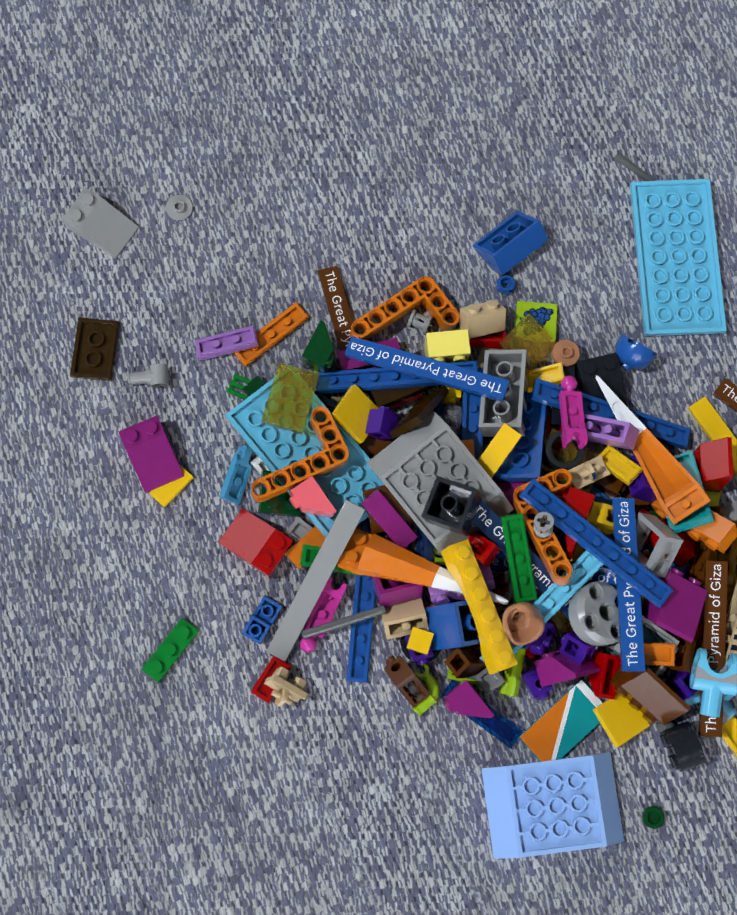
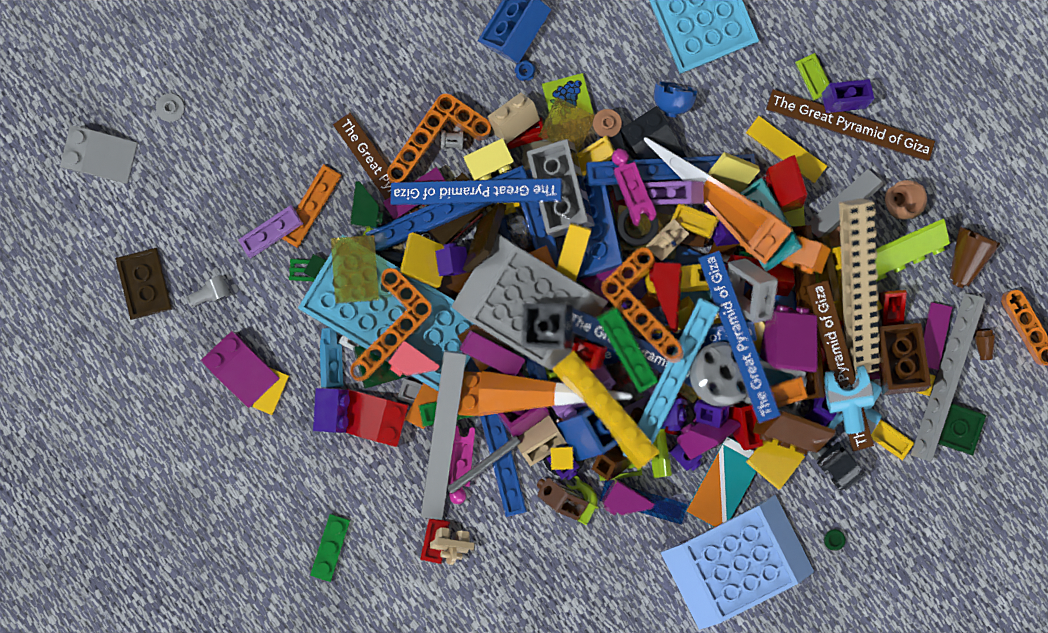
camera: 15 degrees left, 10 degrees up
(220, 521) = (331, 410): none -> dark purple brick
(262, 619) = (406, 488): blue slope -> none
(489, 682) = (640, 474): flat silver plate -> none
(522, 623) = (651, 412): nougat piece -> none
(539, 520) = (634, 308): light grey bush -> none
(597, 543) = (695, 311): blue tile -> none
(670, 433) = (734, 172): none -> light yellow tile

